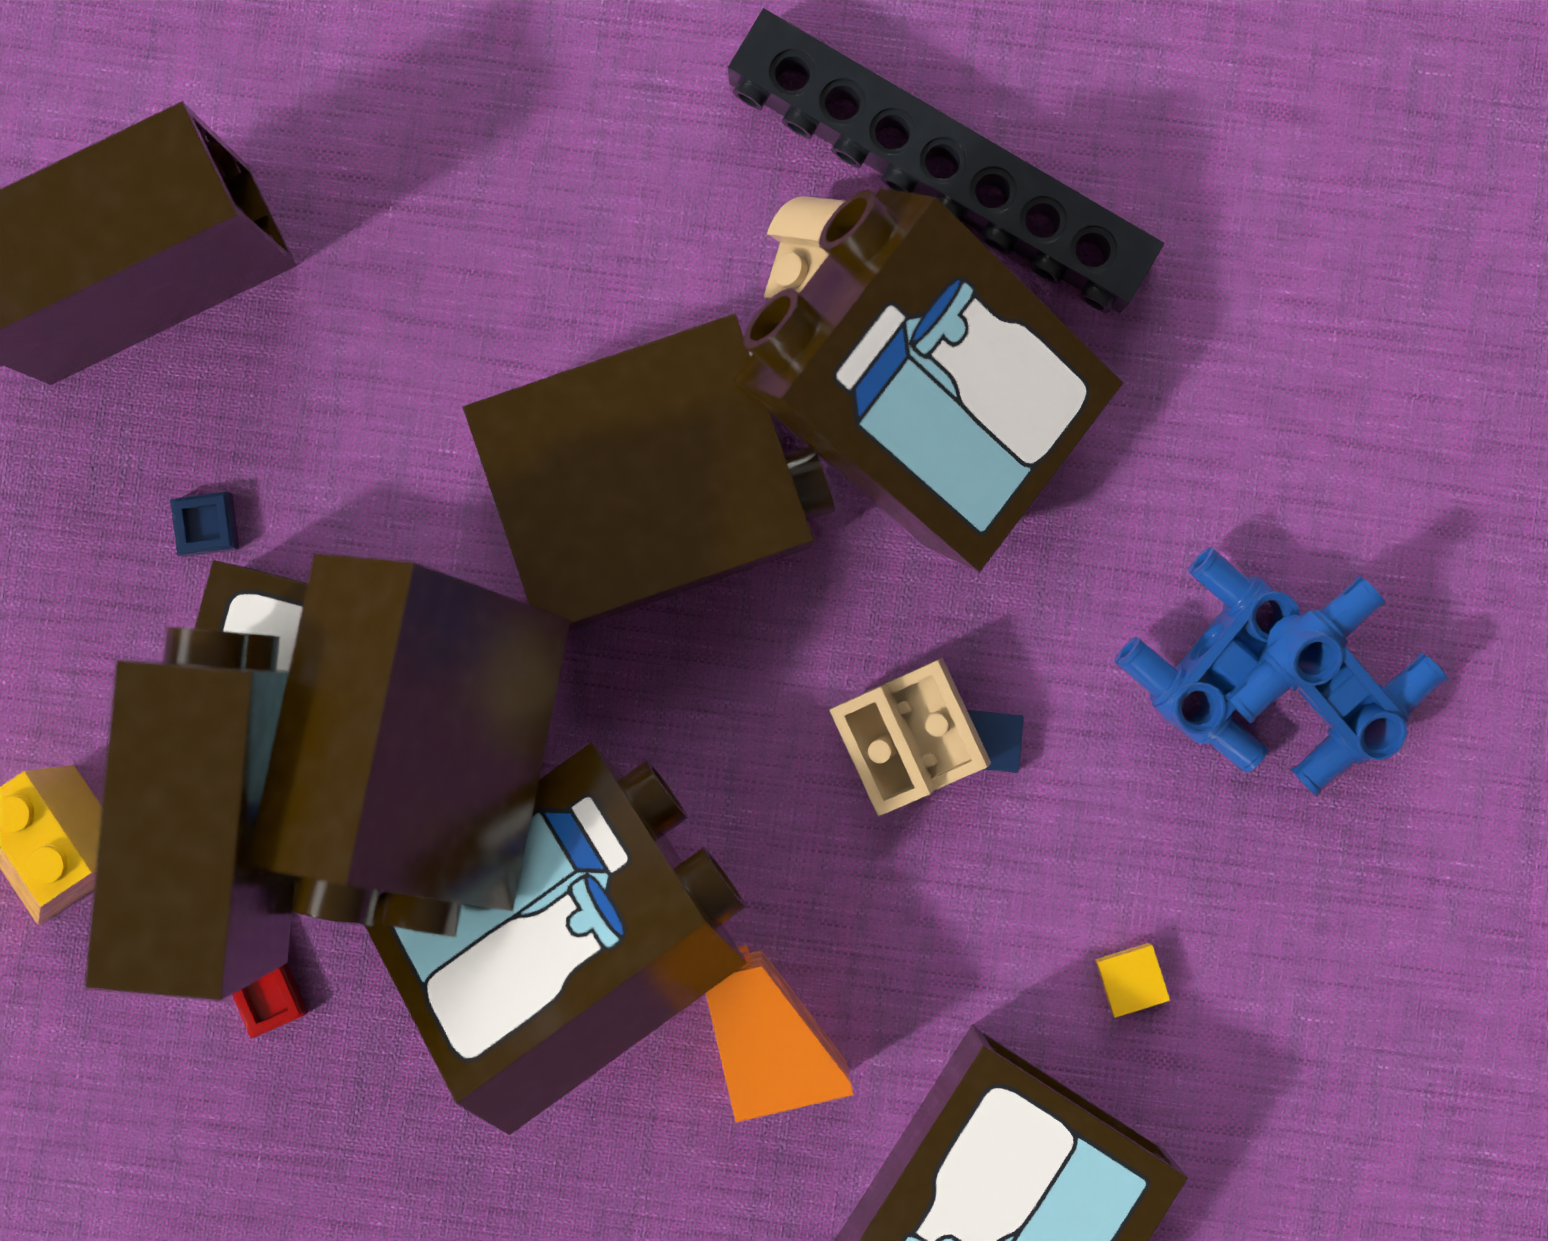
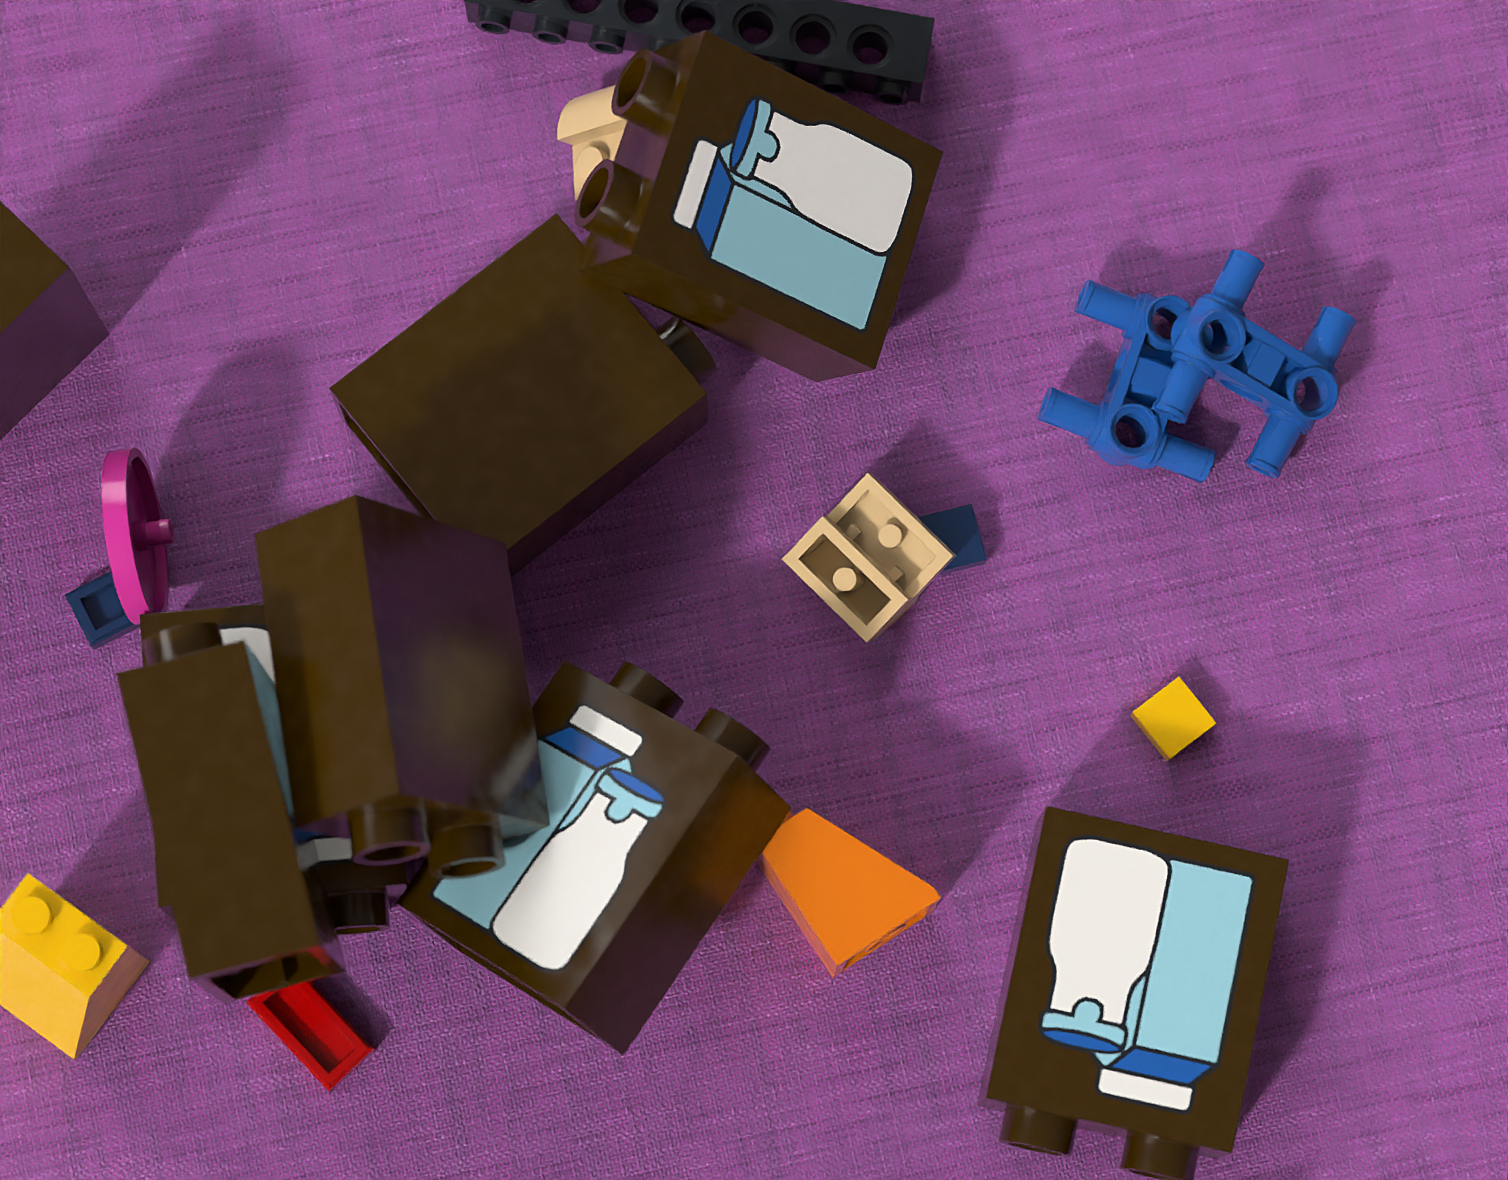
camera: 25 degrees left, 10 degrees down
(239, 477) = (135, 534): none -> dark pink piece

